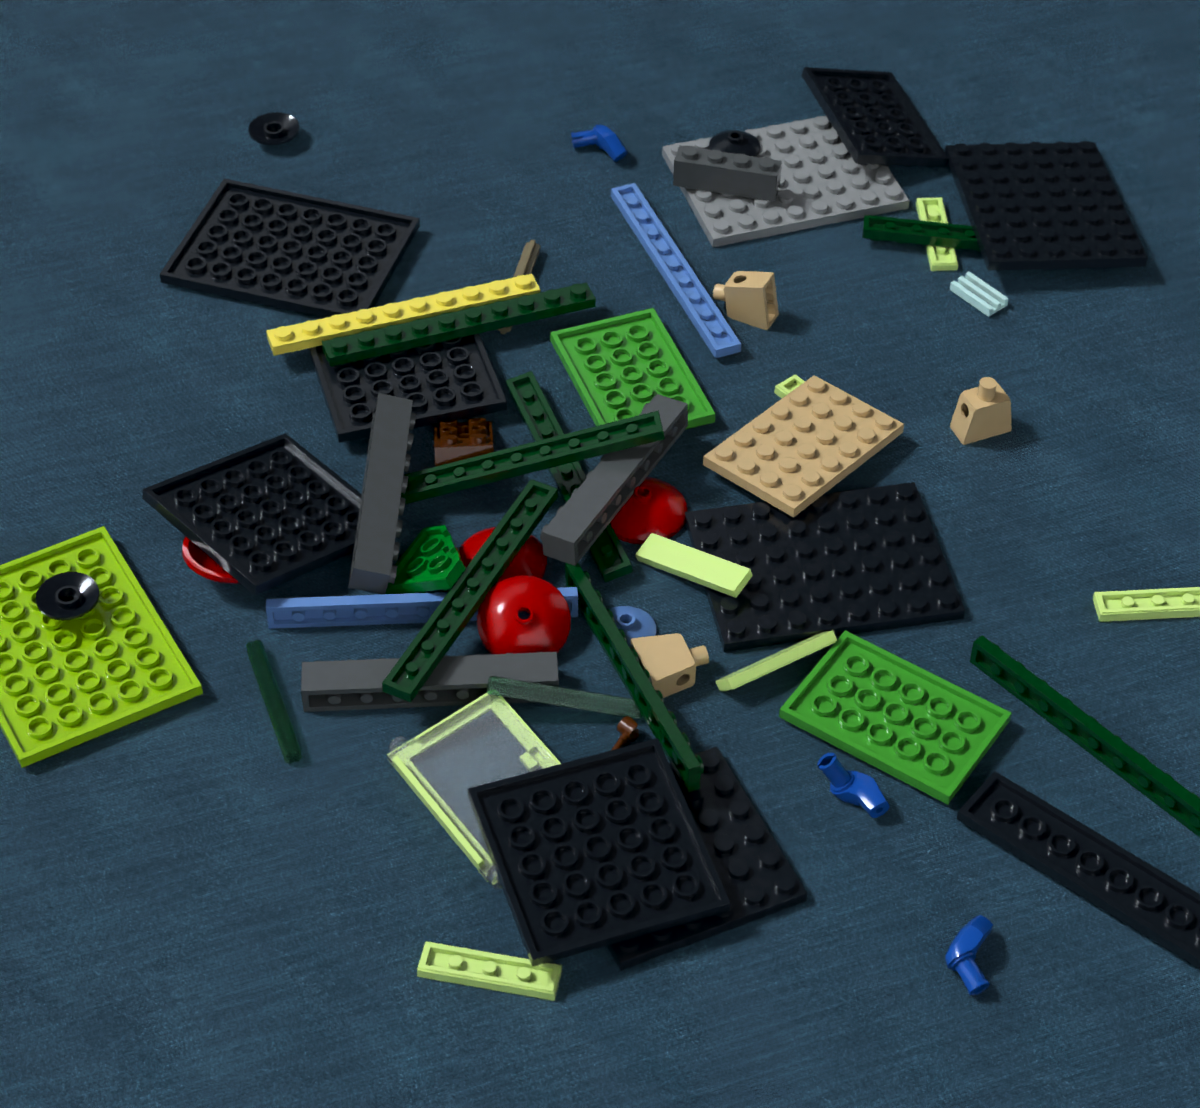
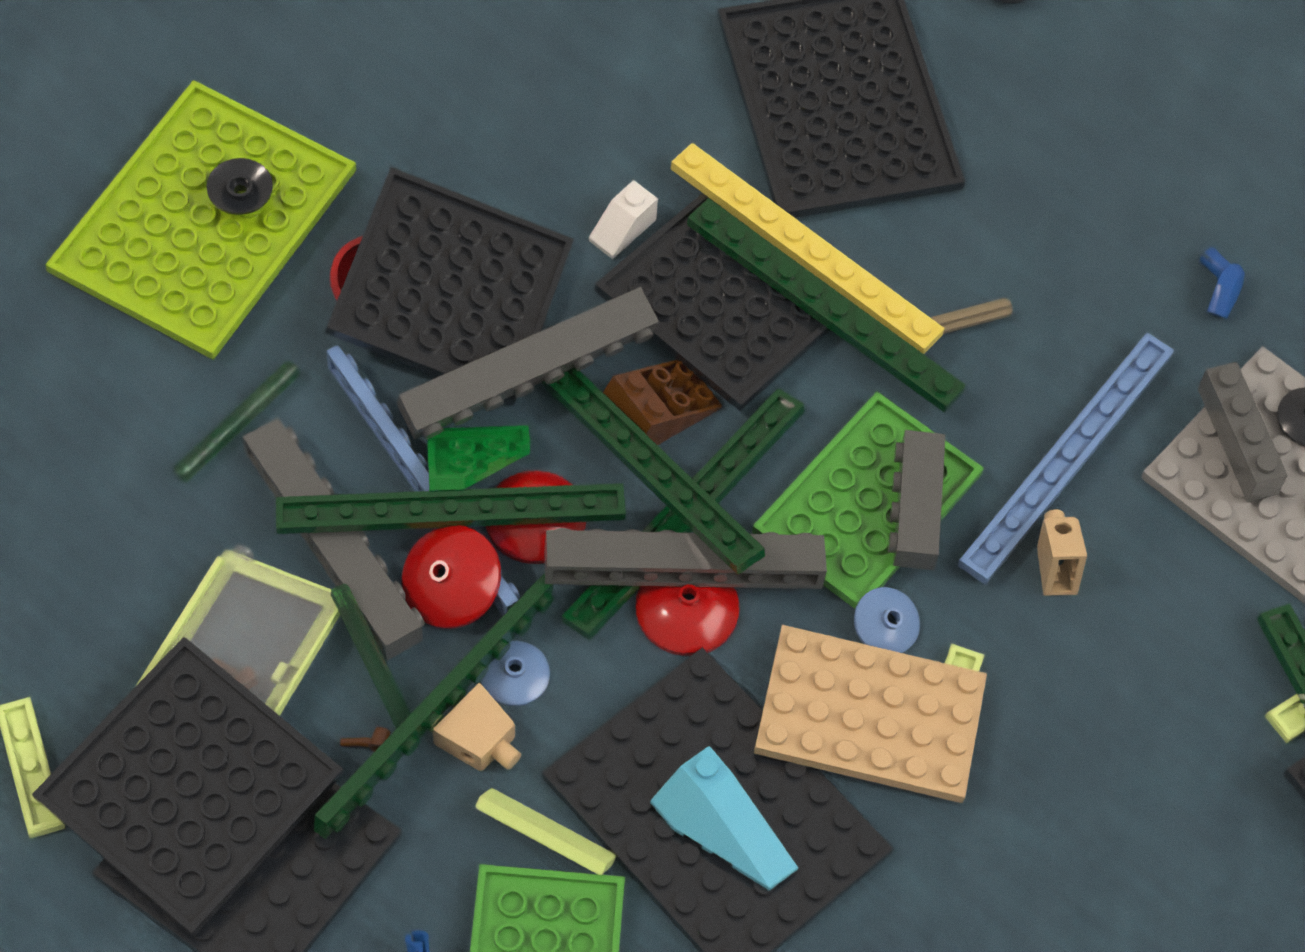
camera: 55 degrees right, 15 degrees up
(293, 399) = (624, 219): none -> white slope
(659, 342) = (918, 500): none -> dark grey brick
(694, 565) = (624, 692): yellowish green tile -> none
(732, 408) = (872, 620): none -> medium blue dish
(828, 550) = (717, 813): none -> medium azure wedge
(982, 294) = (1262, 759): light aqua tile -> none
(982, 412) = (1040, 872): tan torso -> none

